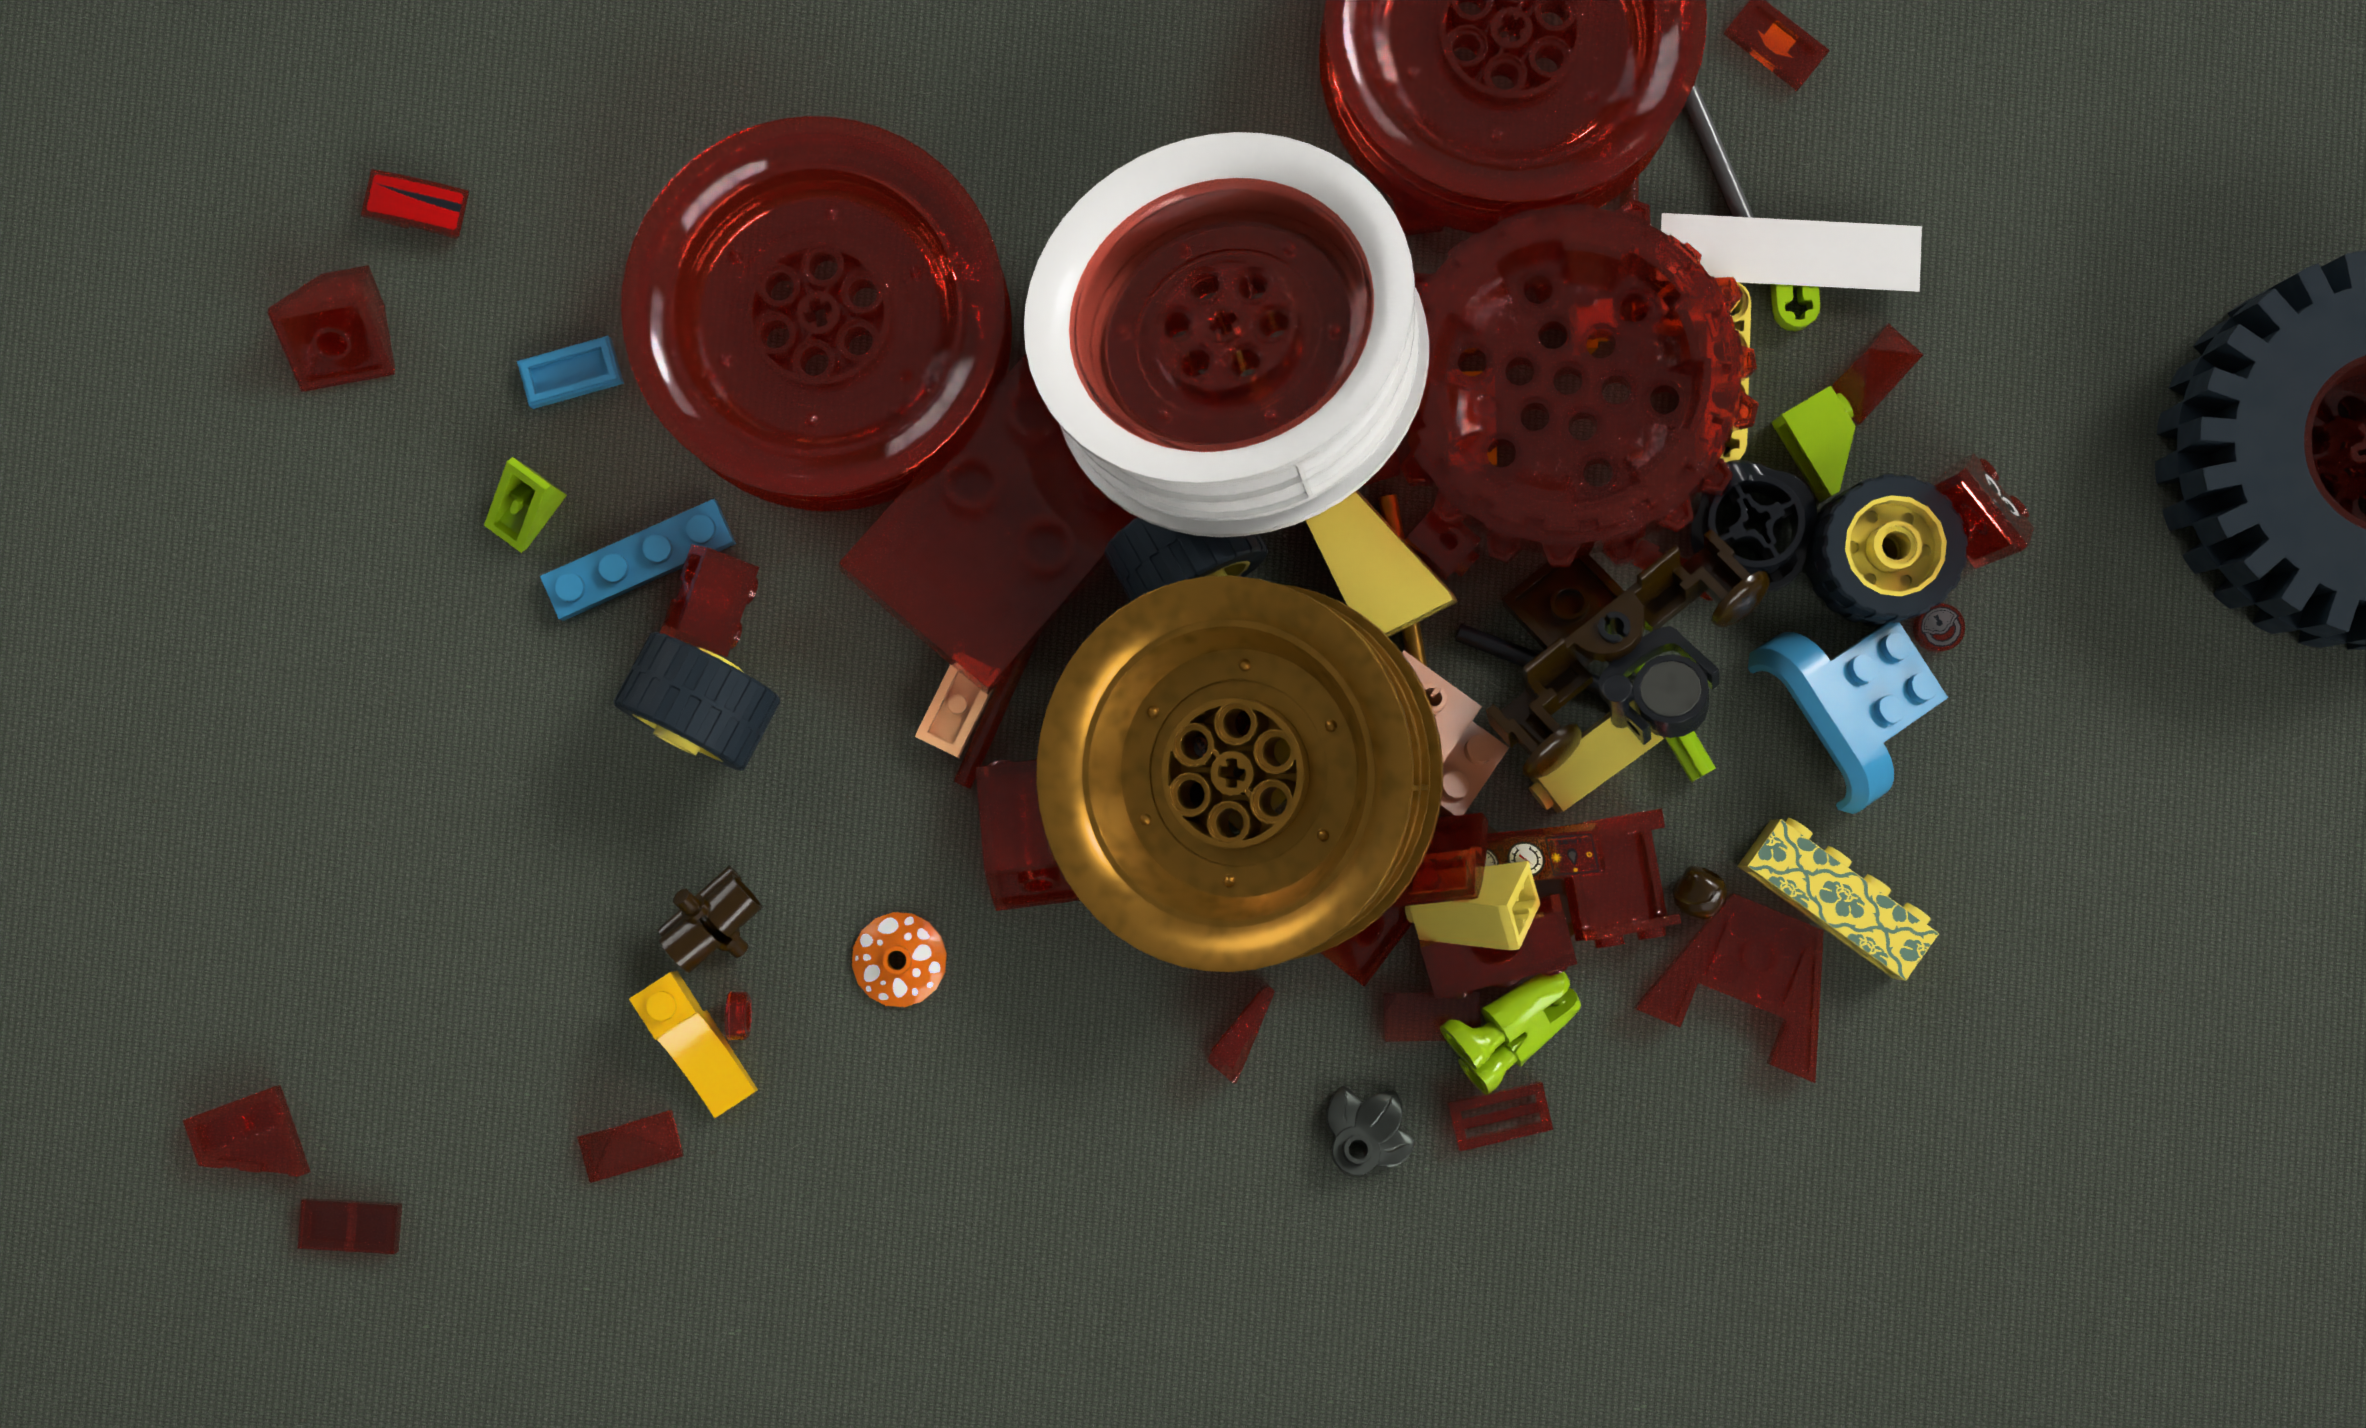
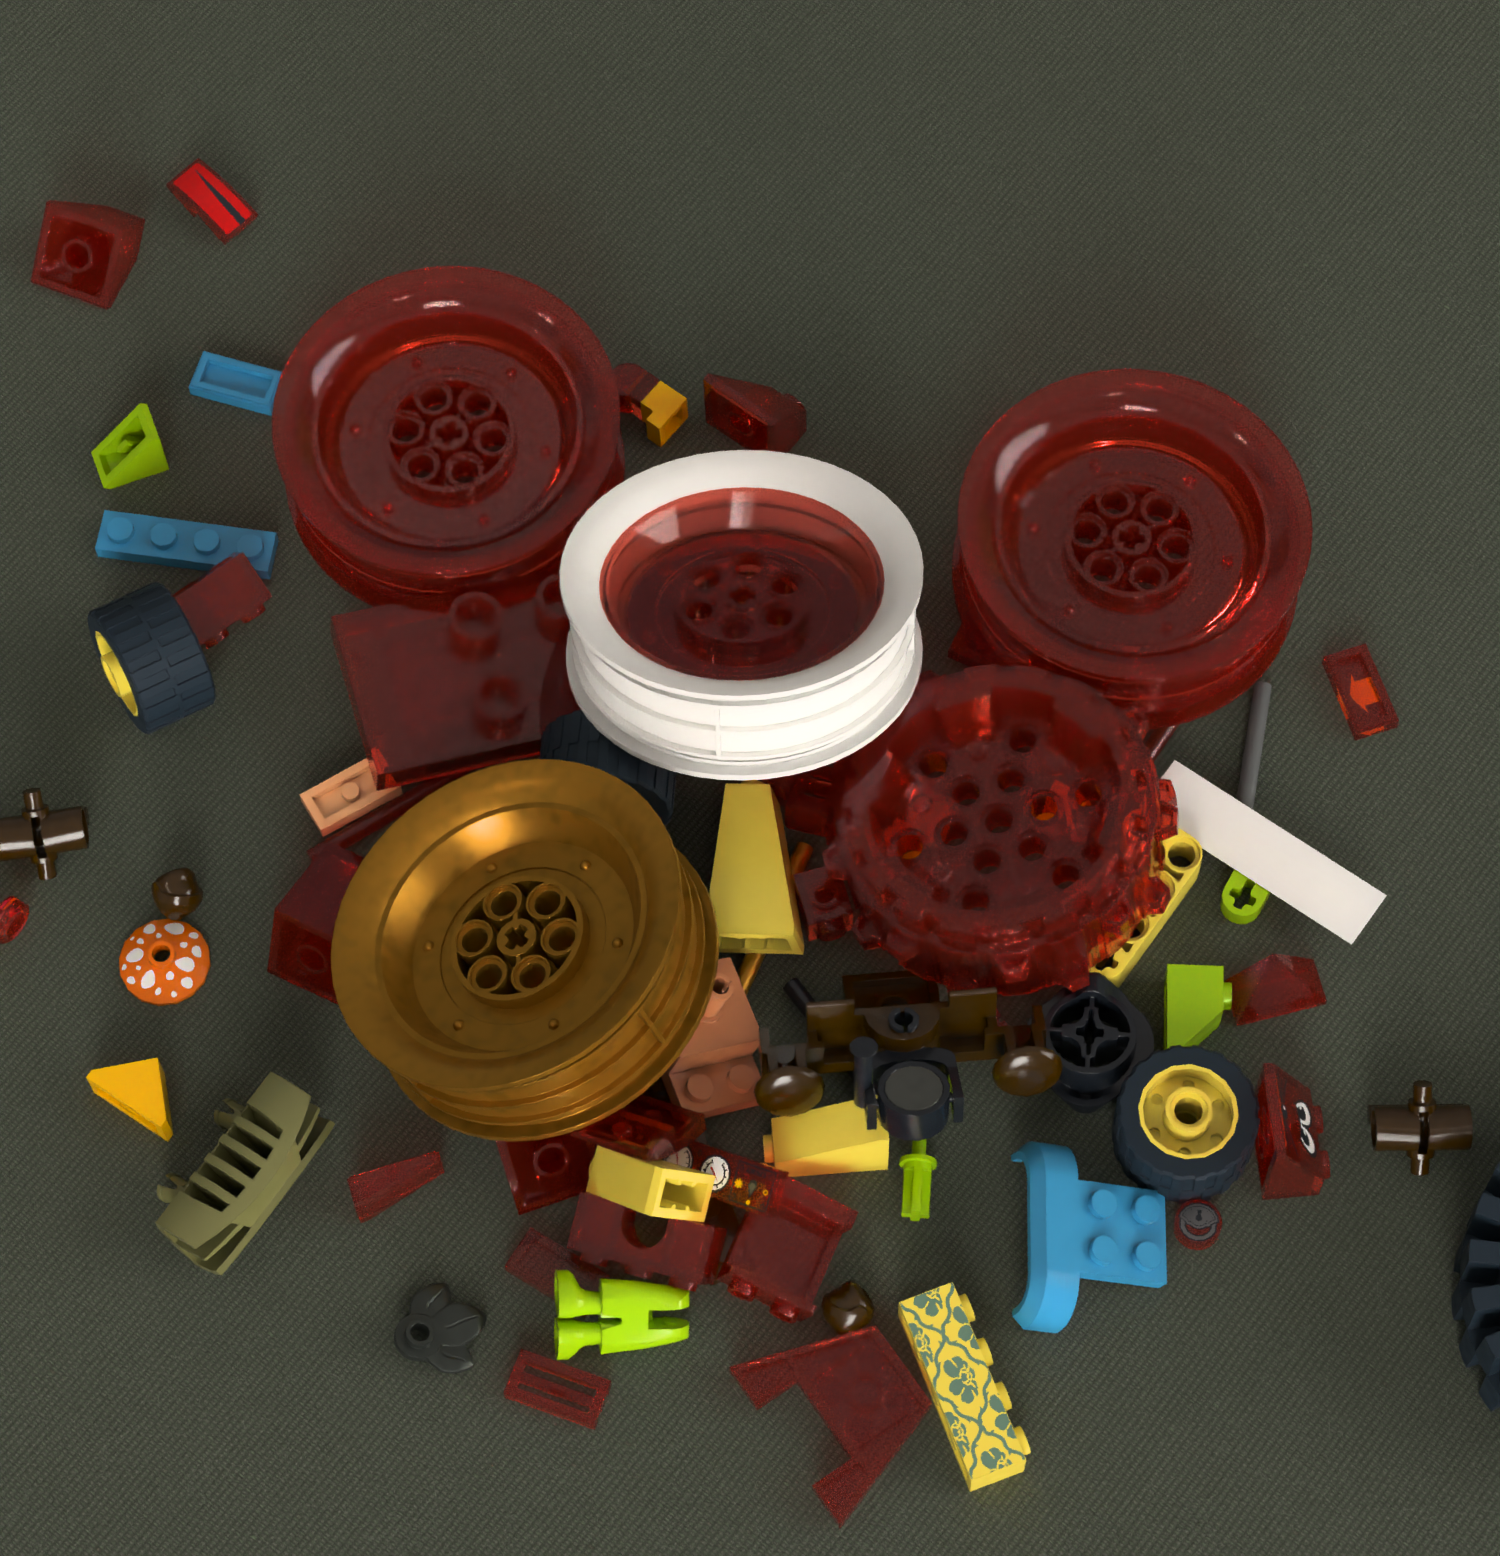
camera: 35 degrees right, 20 degrees down
(870, 895) = (177, 893): none -> dark brown piece
(968, 153) = (650, 401): none -> leg
(968, 1096) = (137, 1091): none -> yellow slope
(1076, 110) = (753, 414): none -> clear red slope
(1119, 1115) = (243, 1174): none -> olive piece
(2078, 423) = (1420, 1127): none -> dark brown pin

